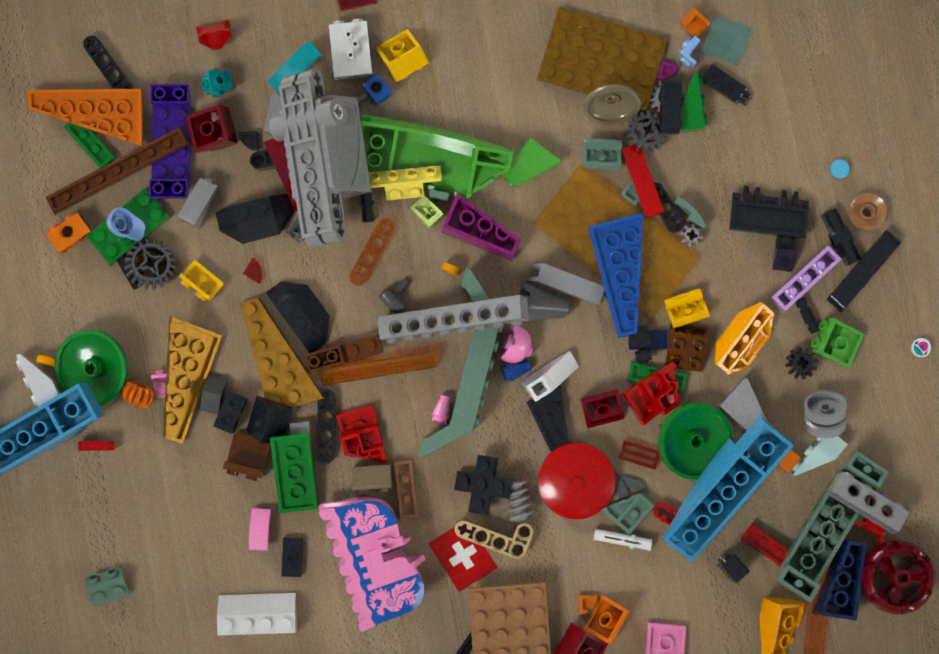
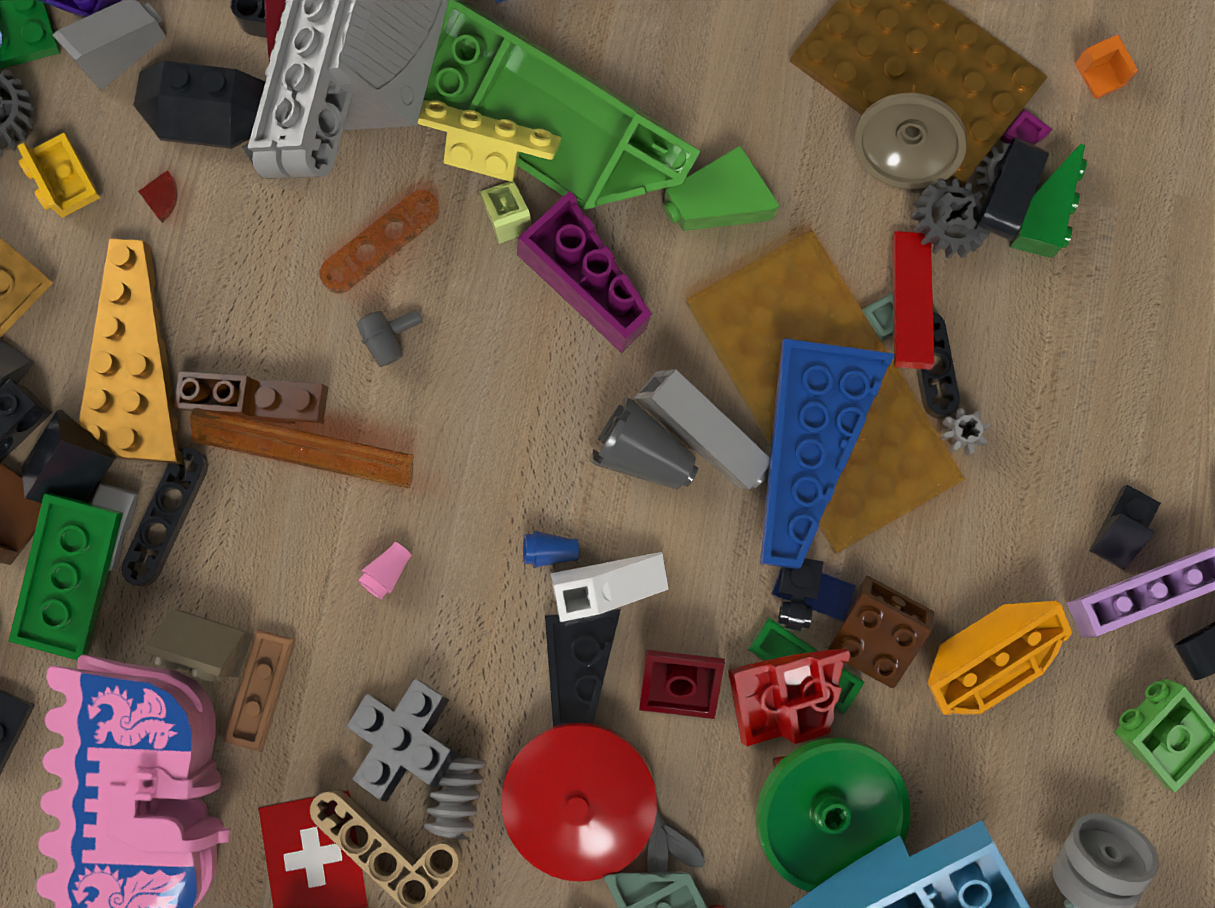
camera: 20 degrees right, 5 degrees down
(302, 313) = (208, 300): black wedge -> none
(361, 434) = (222, 556): red slope -> none
(367, 207) = (405, 156): black pin -> none
(389, 324) = (406, 393): light grey brick -> none
(439, 195) = (538, 188): sand green tile -> none
(451, 269) = (506, 323): light orange tile -> none
(473, 378) = (468, 524): sand green slope -> none
(516, 345) = (567, 504): bright pink cylinder -> none
(602, 154) = (857, 225): sand green bracket -> none
(624, 450) = (691, 778): clear red tile -> none
(686, 308) = (908, 559): yellow bracket -> none
(689, 45) = (1080, 103): light blue bracket -> none
(694, 217) = (977, 381): sand green slope -> none
(726, 40) = (1150, 119): clear light blue tile -> none
(726, 85) = (1123, 195): black hinge -> none
(742, 405) = (947, 784): light grey slope -> none
(769, 216) = (1124, 450): black hinge -> none
(797, 368) = (1081, 760): black gear -> none
(807, 315) = (1128, 662): black axle -> none

